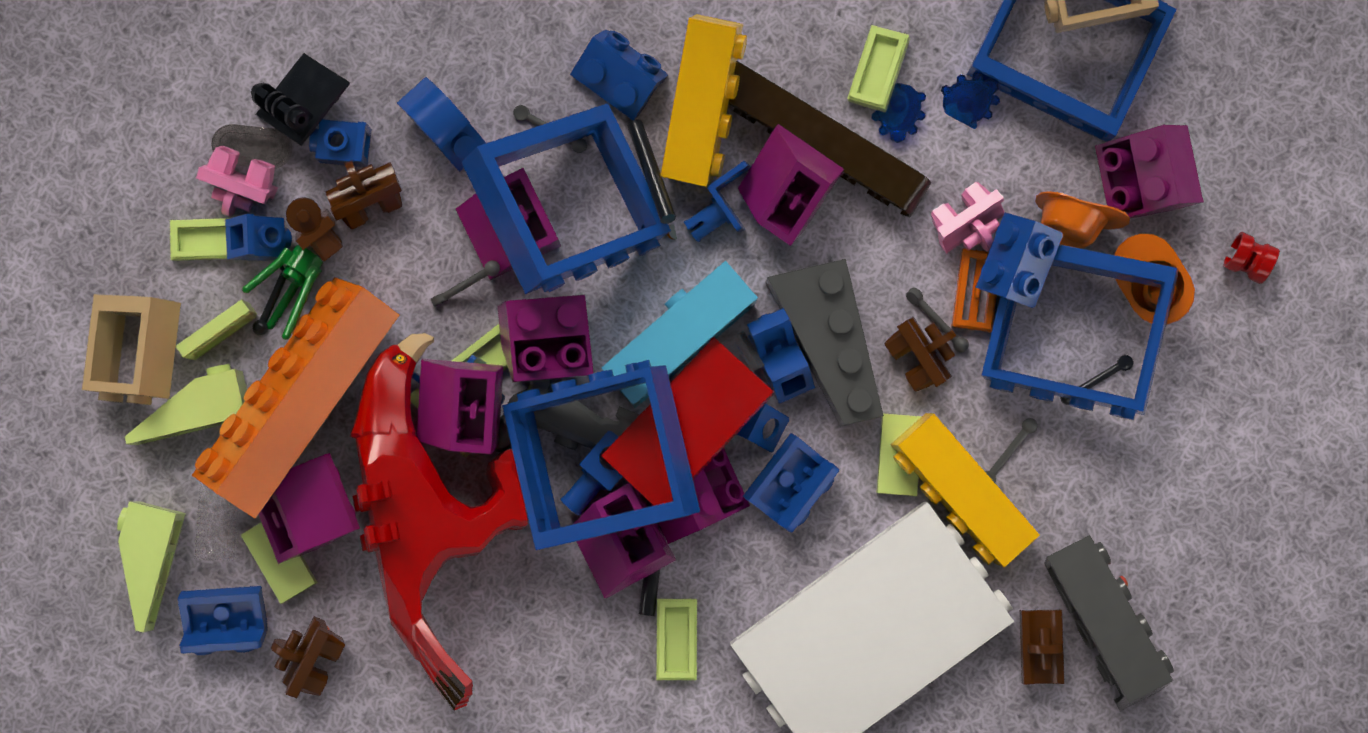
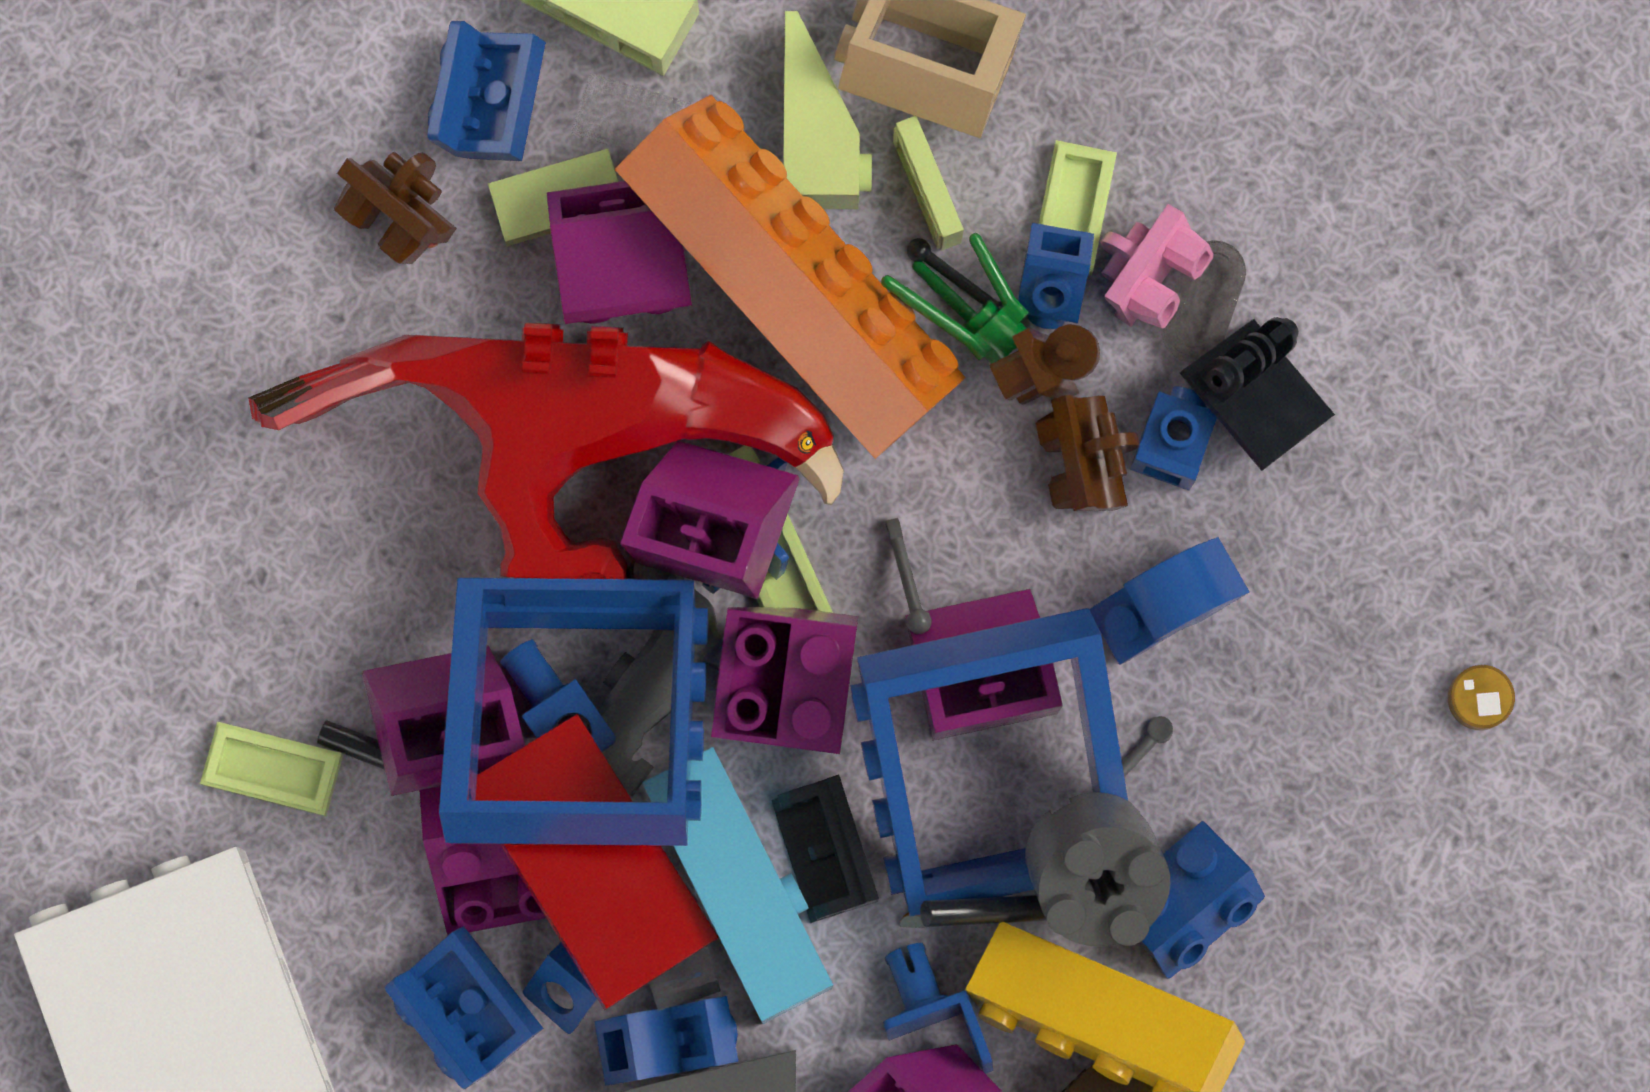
camera: 105 degrees right, 5 degrees down
(617, 122) = (1098, 871): none -> dark grey brick
(641, 292) = (825, 849): none -> black hinge

